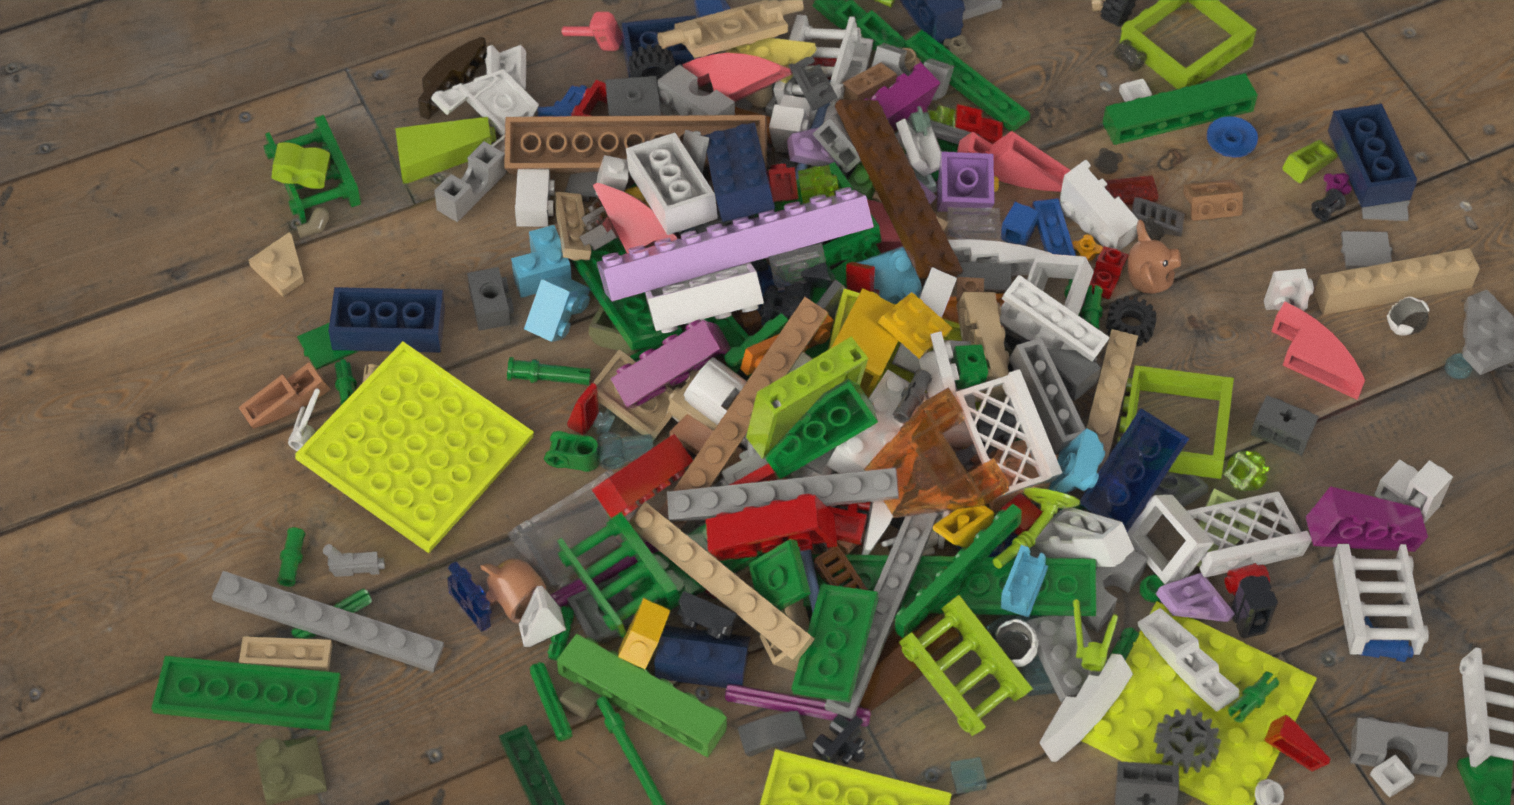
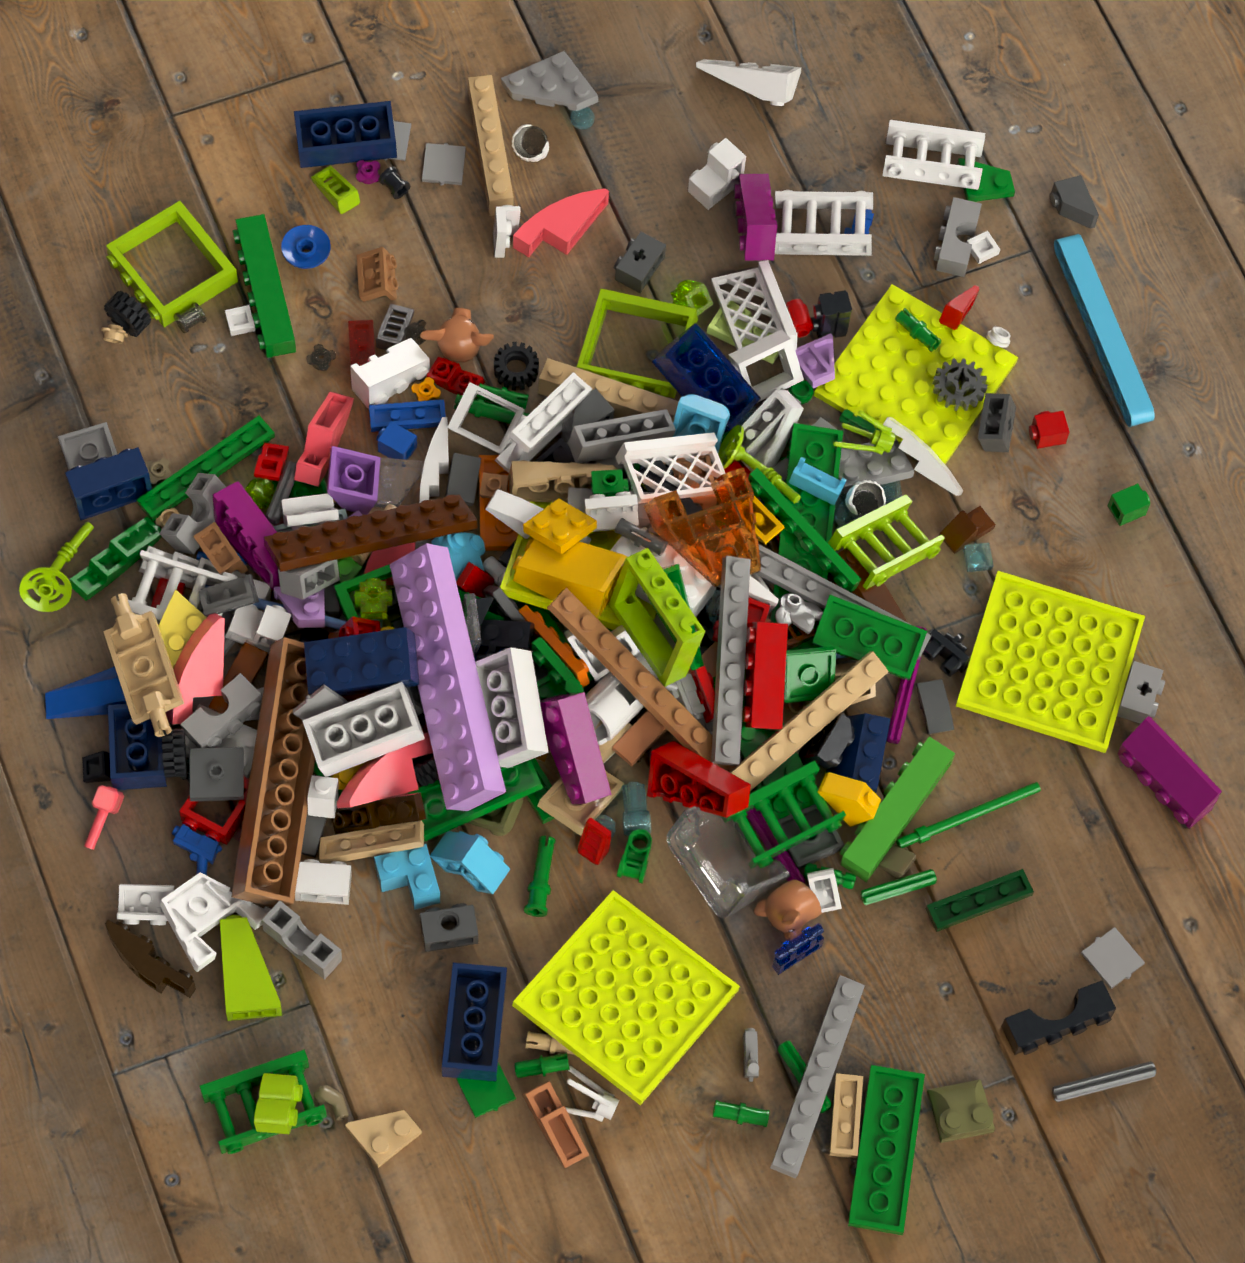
camera: 90 degrees left, 10 degrees up
(854, 570) = (797, 611): none -> light grey plate
(920, 121) = (287, 504): sand green plate -> none
(1006, 767) = (967, 528): none -> reddish brown slope
(1187, 659) = (880, 373): white slope -> none

